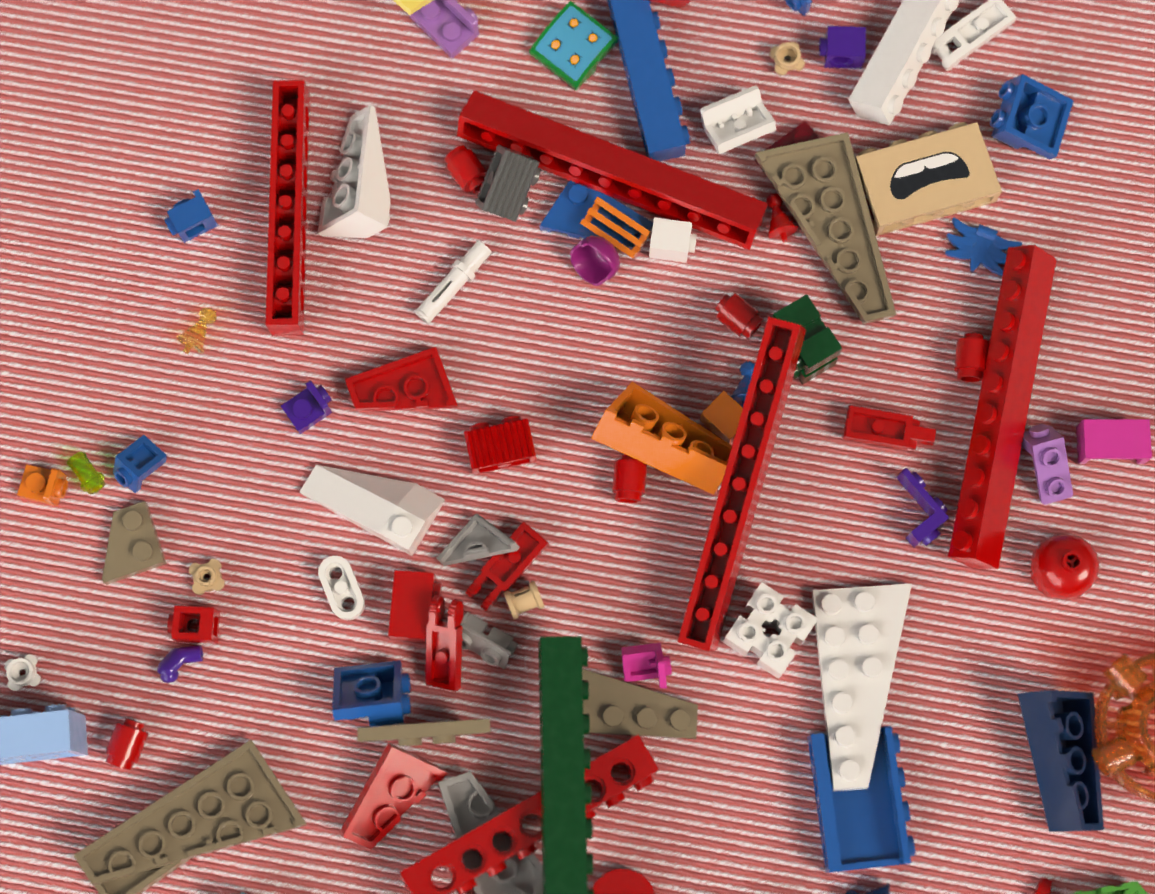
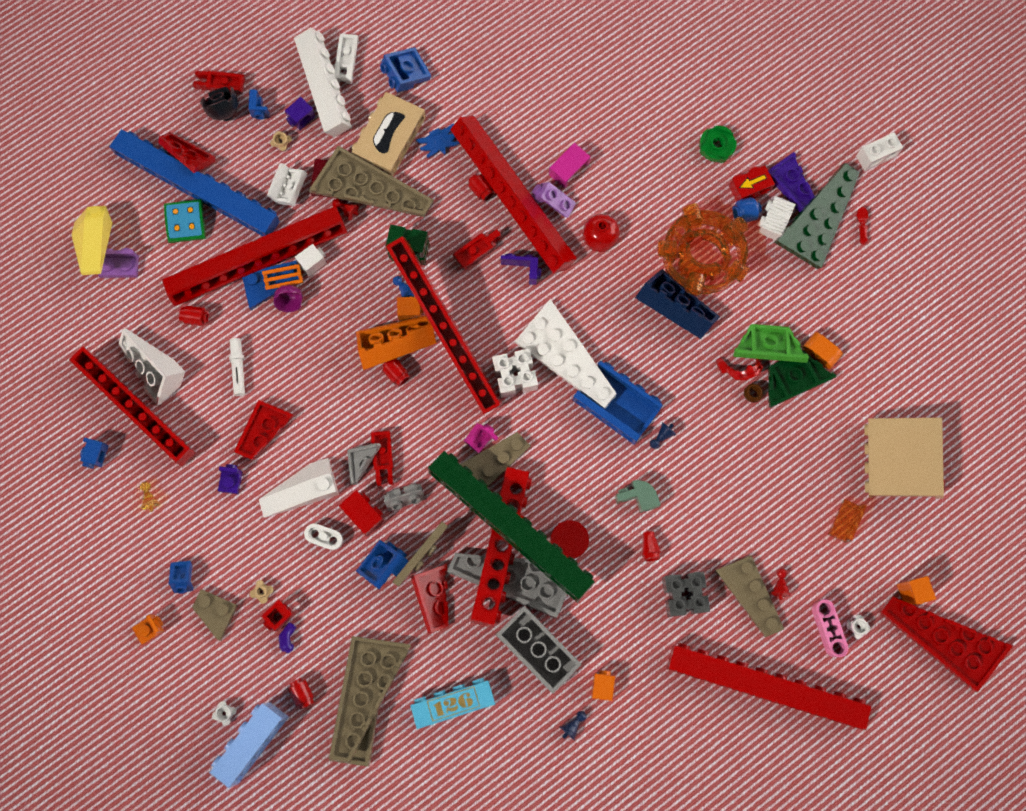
camera: 50 degrees left, 0 degrees up
(86, 473) = (162, 604): clear neon green pin -> none
(444, 645) = (391, 514): red hinge -> none
(500, 445) = (328, 412): red brick -> none
(508, 183) = (218, 303): dark grey brick -> none
(524, 599) = (404, 463): tan bush -> none
(738, 315) = (370, 262): red brick -> none

